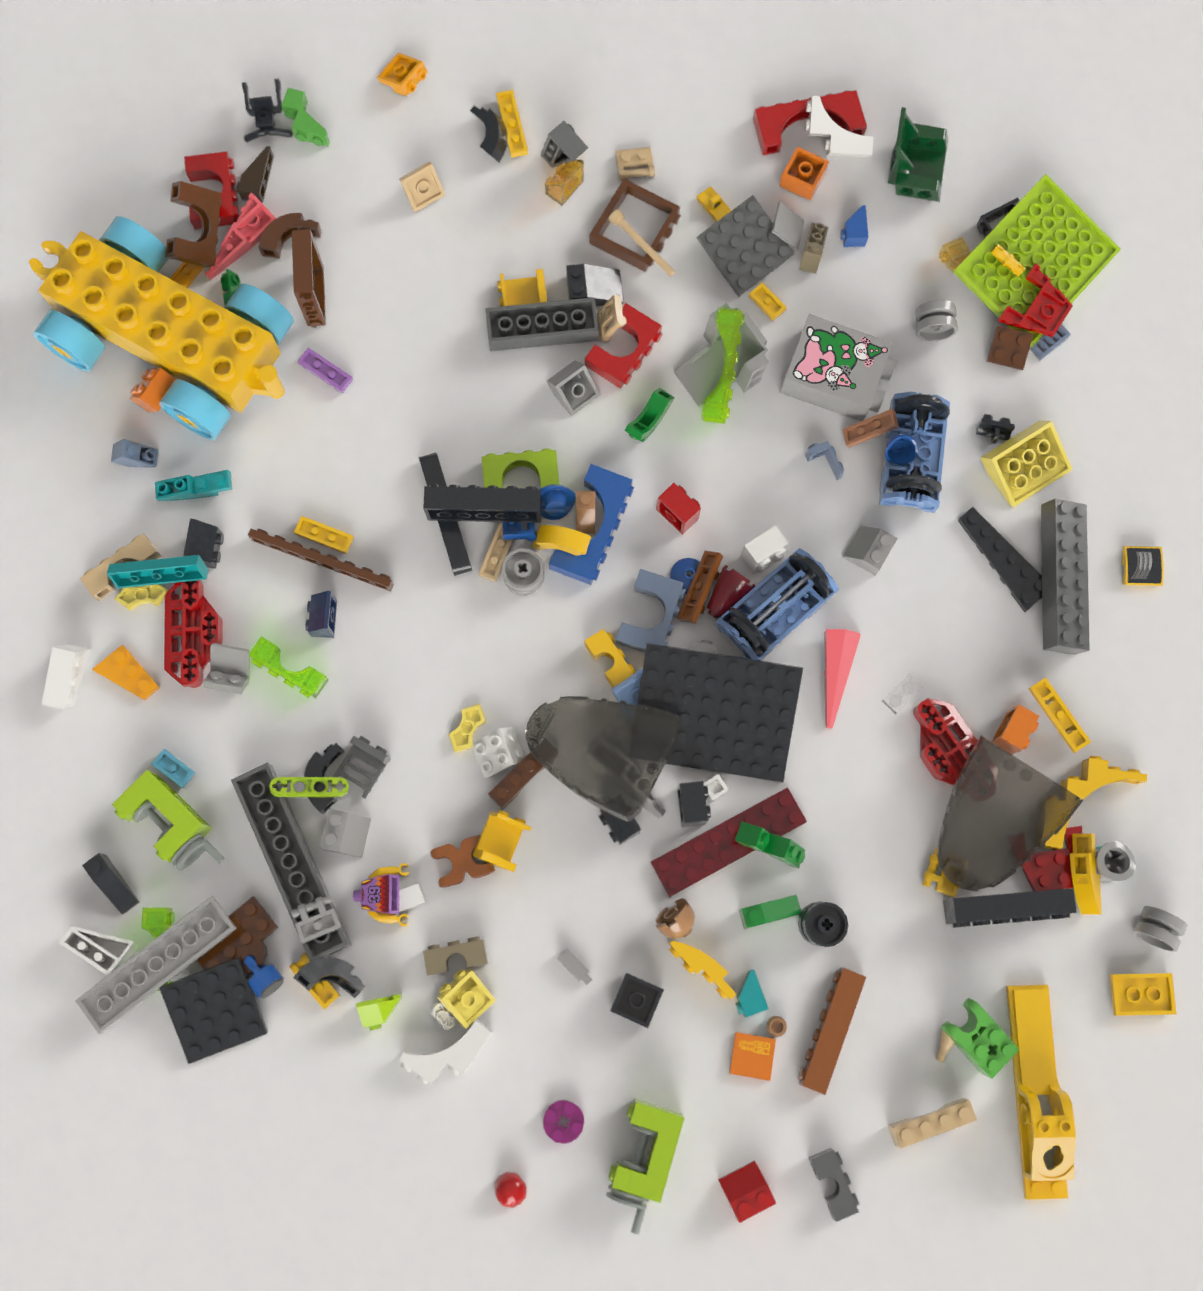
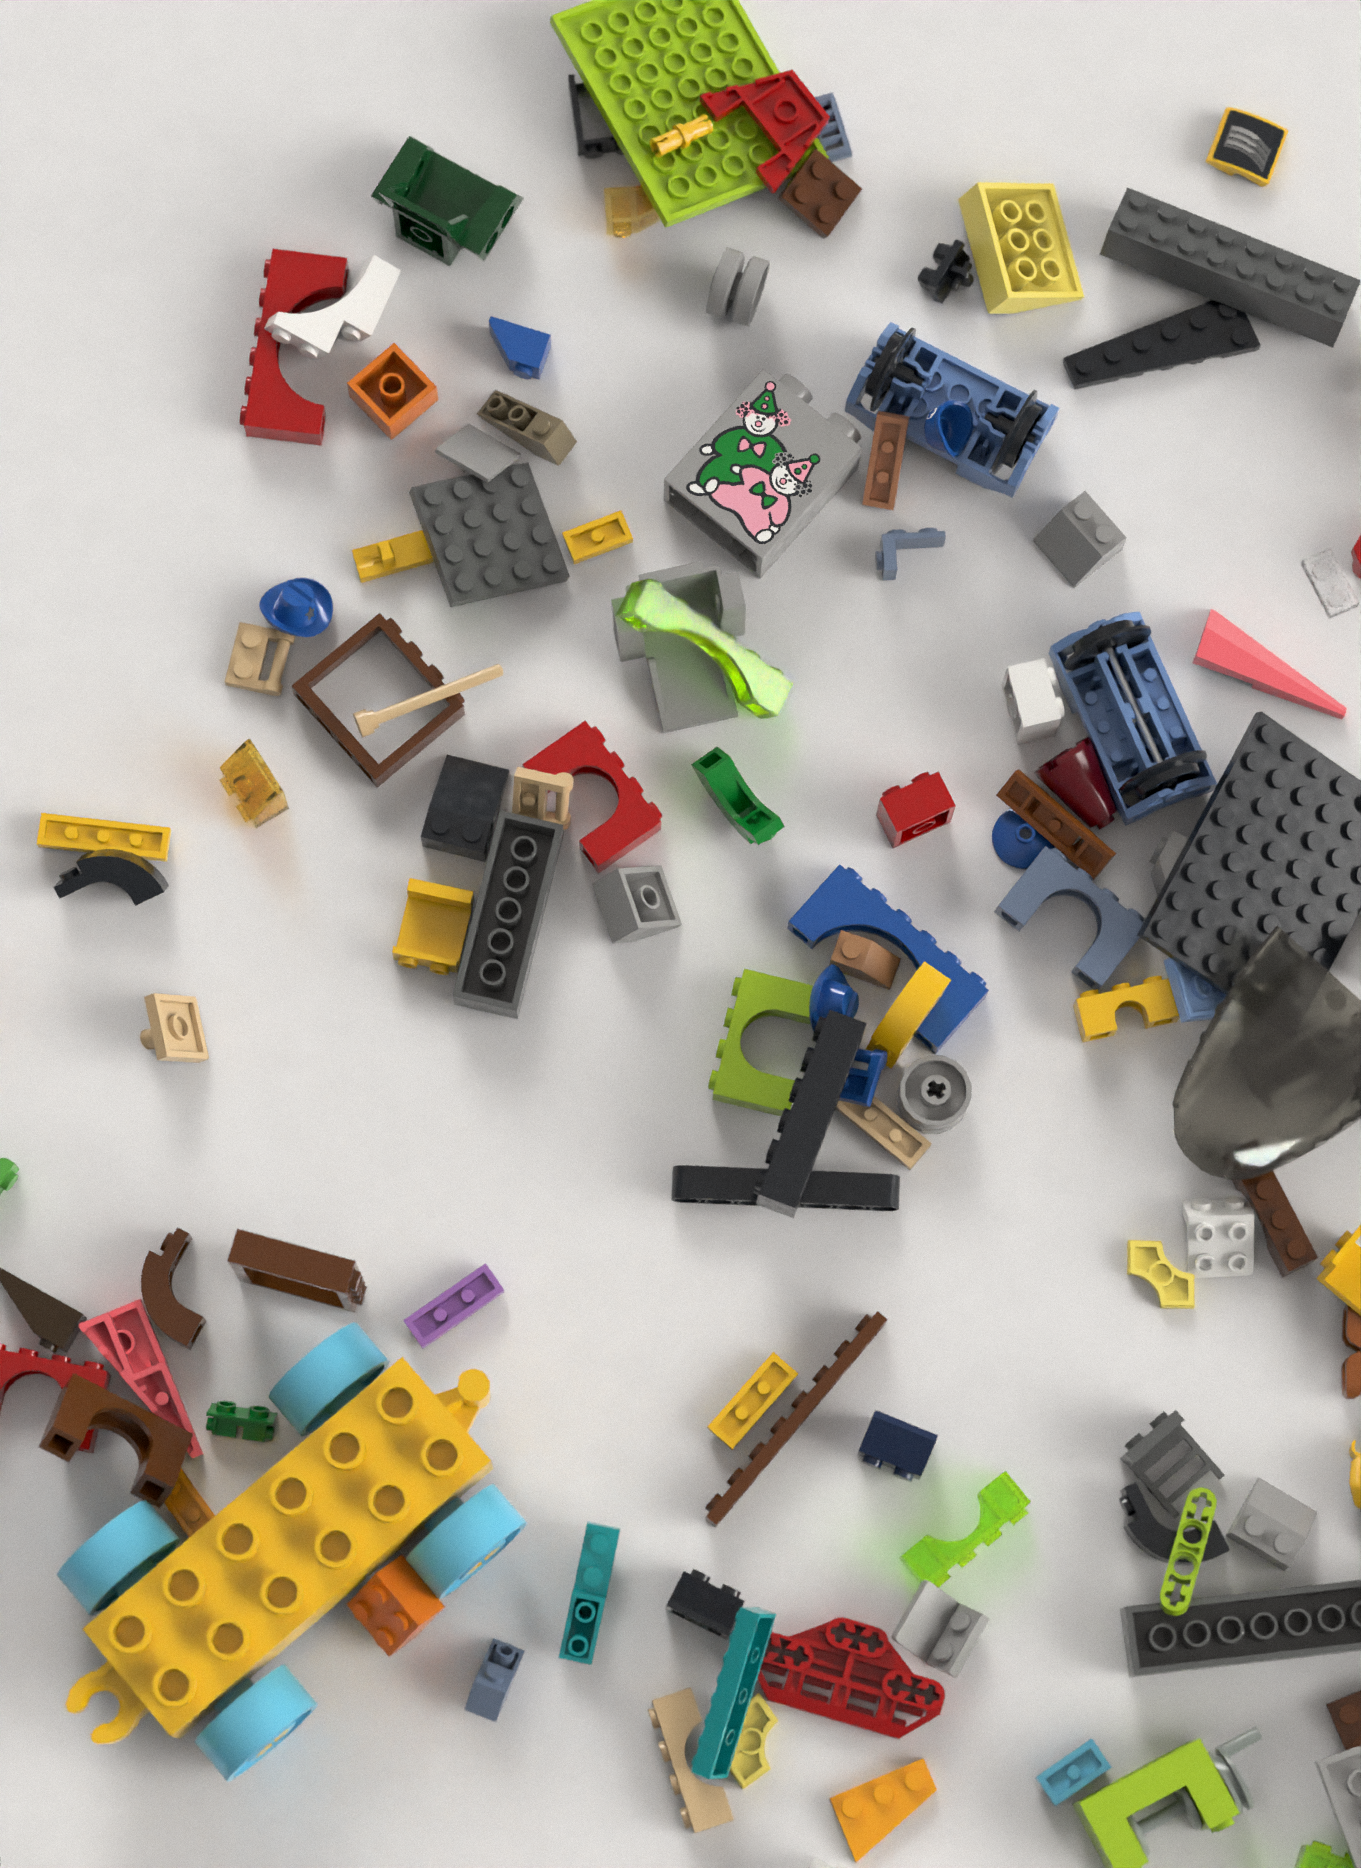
camera: 70 degrees left, 0 degrees up
(562, 145) = (203, 762): dark grey wedge -> none
(668, 170) = (298, 607): none -> blue hat

